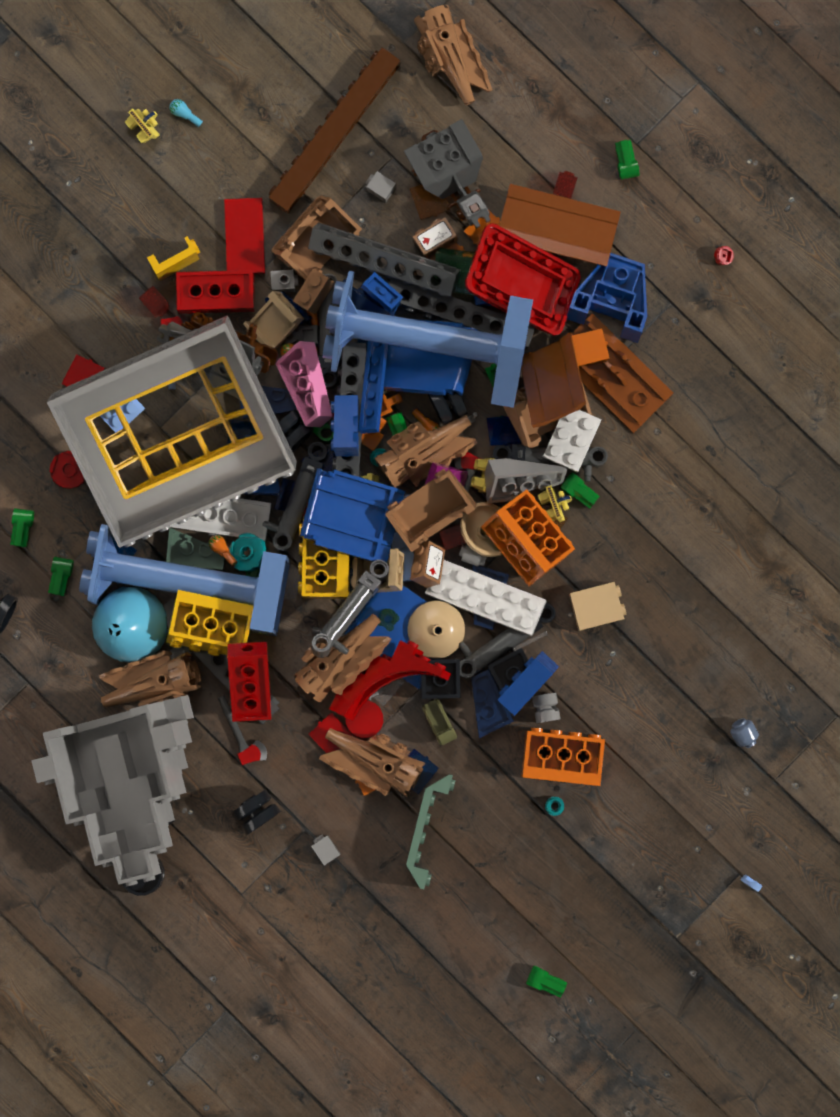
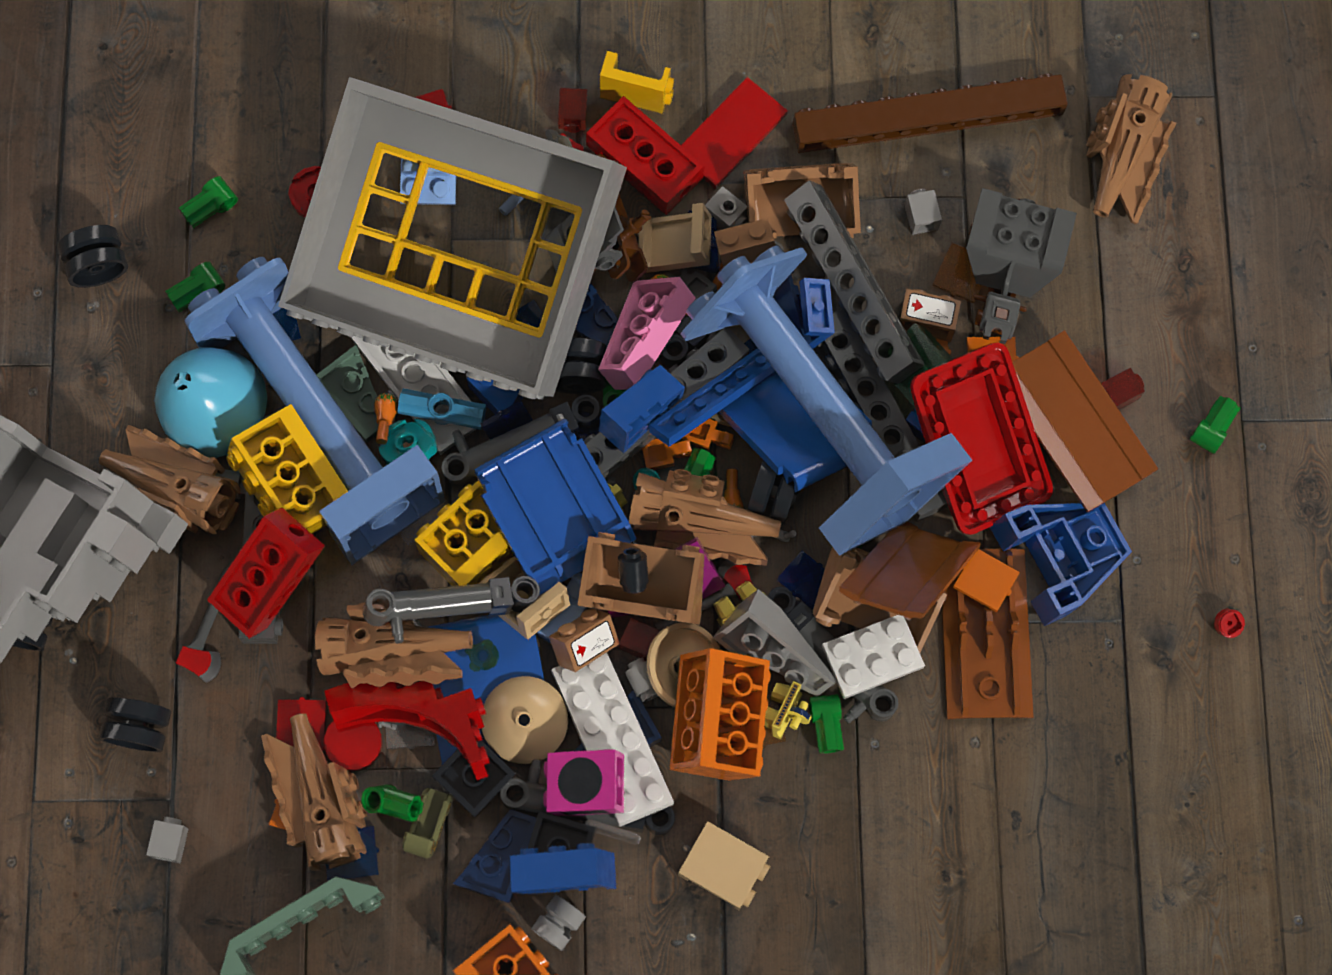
camera: 40 degrees right, 10 degrees down
(257, 511) = (423, 406): none -> dark azure piece
(414, 729) = (392, 802): none -> green piece
(421, 509) = (633, 570): none -> black brick
(497, 632) = (584, 782): none -> dark pink brick

